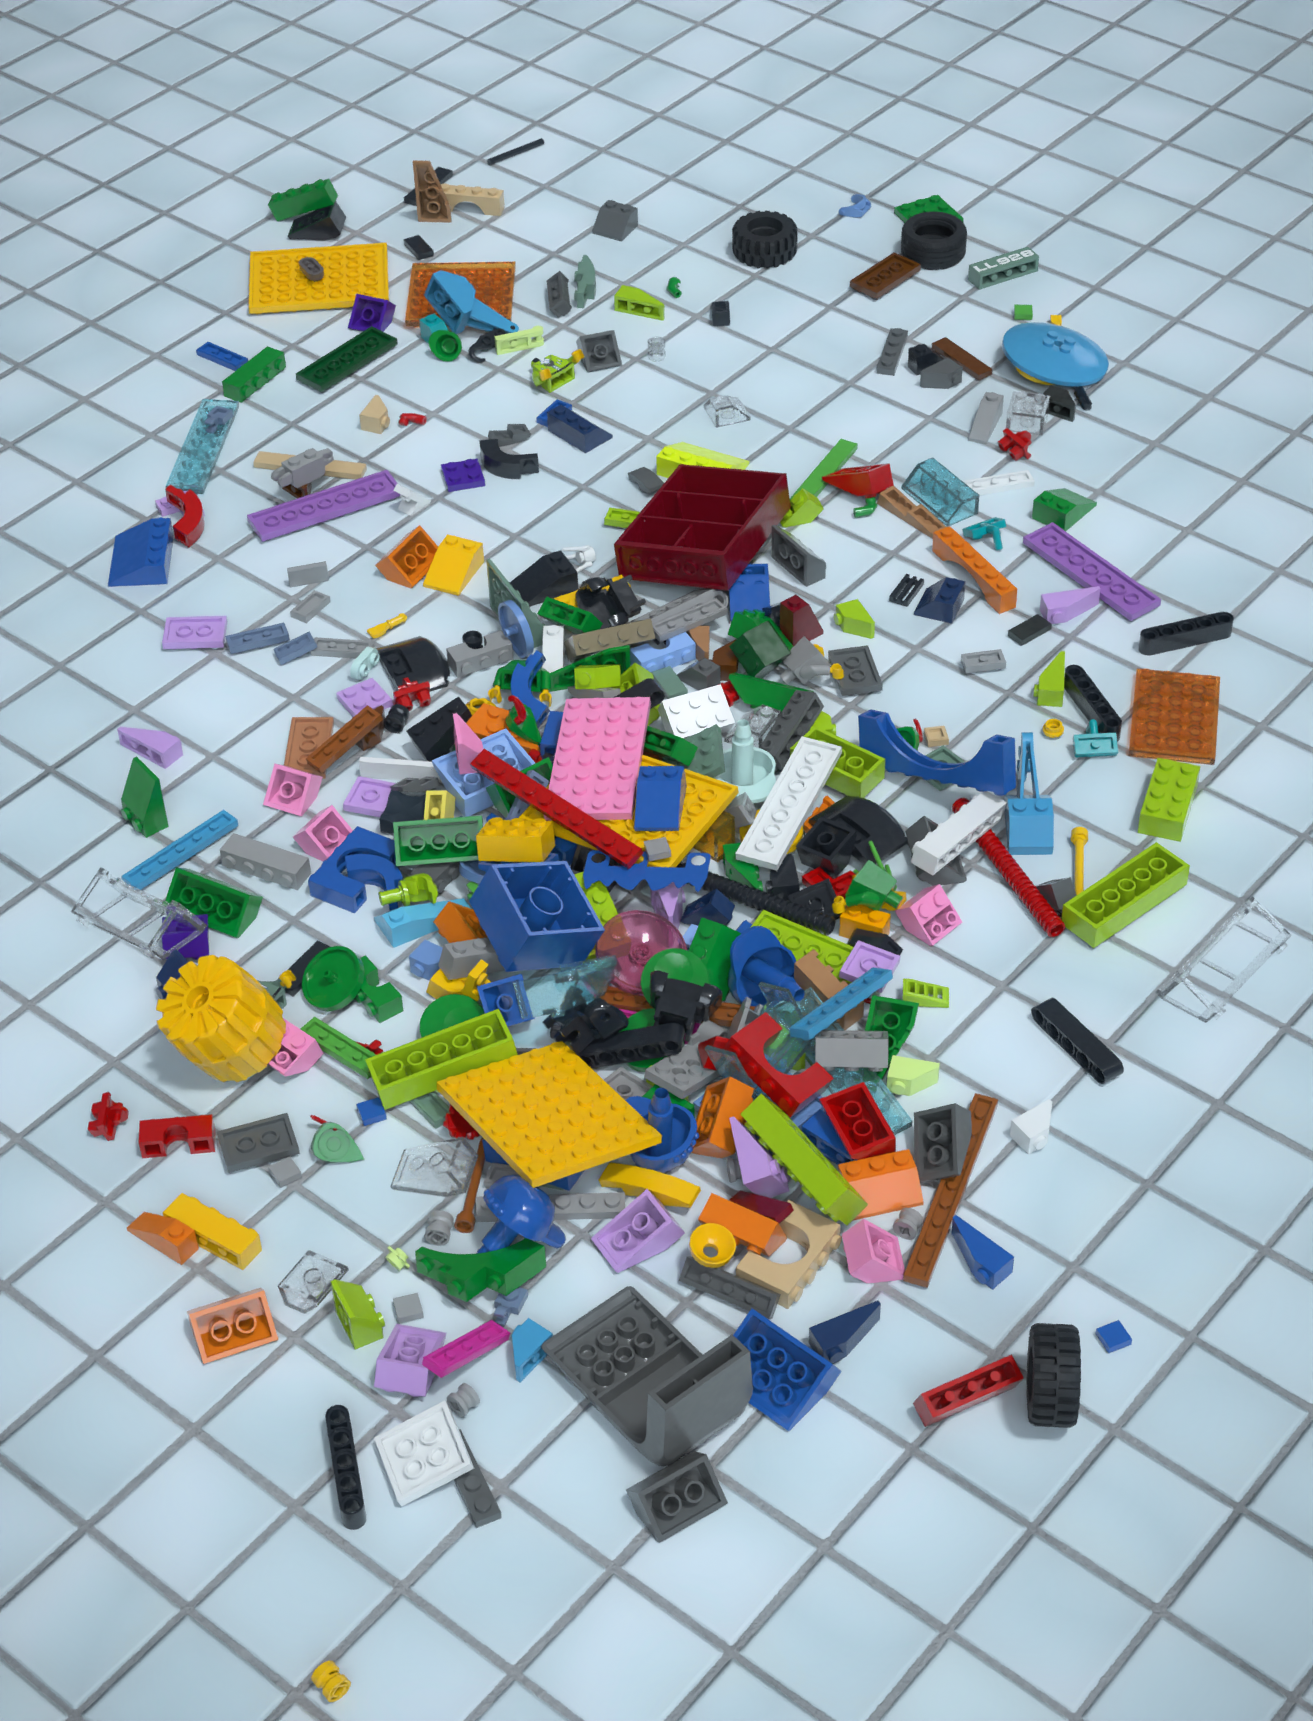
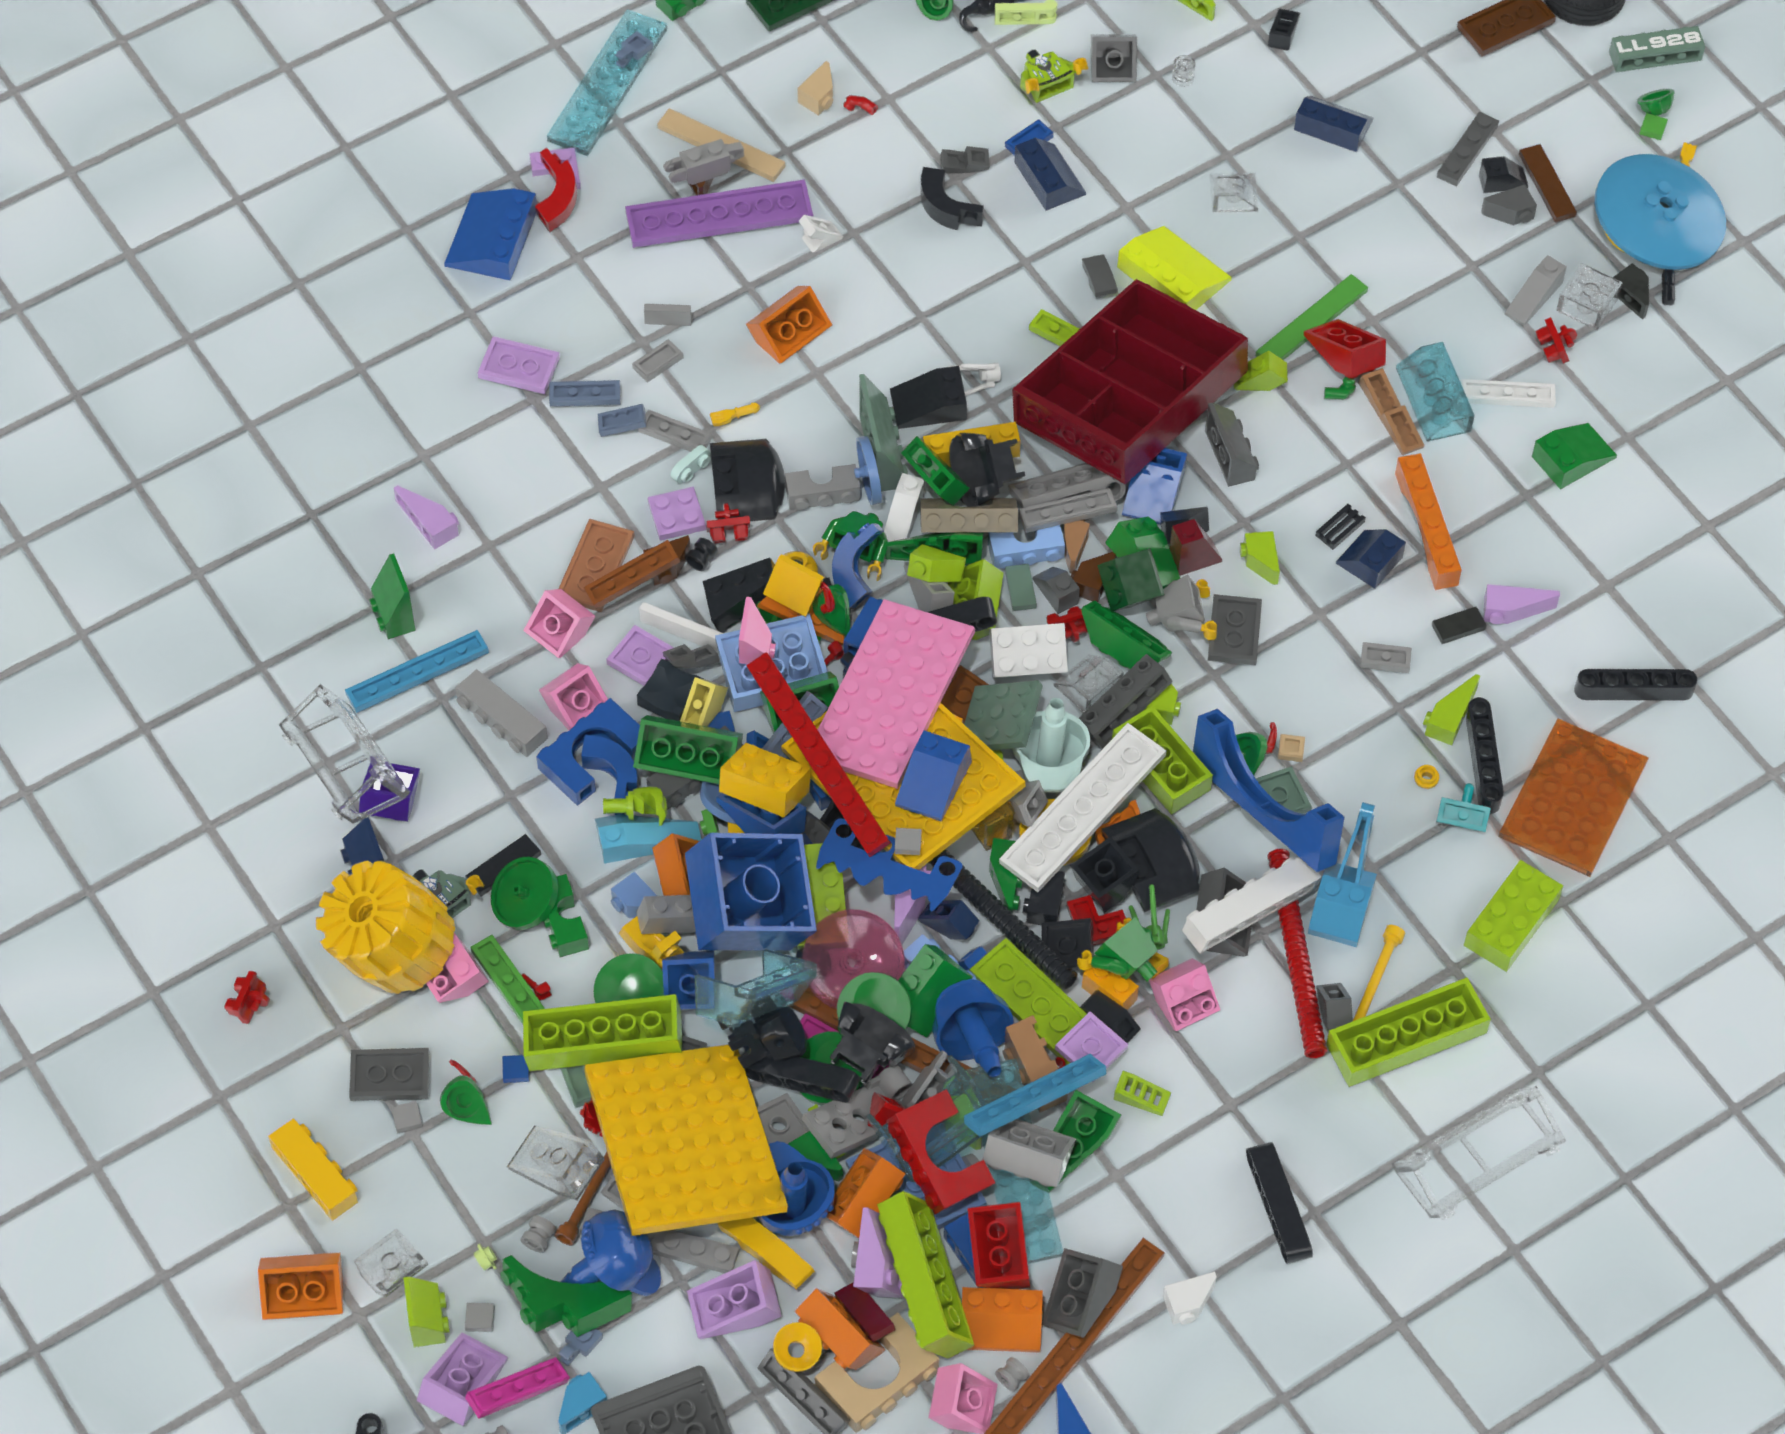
camera: 15 degrees right, 15 degrees up
(158, 1134) = (290, 1035): red arch -> none
(166, 1235) = (265, 1159): orange slope -> none
(227, 906) = (425, 743): green slope -> none
(454, 564) = (835, 347): yellow slope -> none
(462, 475) = (891, 208): dark purple plate -> none
(473, 639) = (819, 469): black wheel -> none
(487, 704) = (793, 585): none -> yellow tile
(669, 746) = (975, 693): green brick -> none
(783, 355) = (1332, 123): none -> dark blue slope
(911, 1075) = (1084, 1194): yellowish green slope -> none
(989, 526) = (1469, 460): teal plate -> none
(1020, 297) = (1657, 101): none -> green piece
(1092, 571) = (1565, 560): medium lavender plate -> none

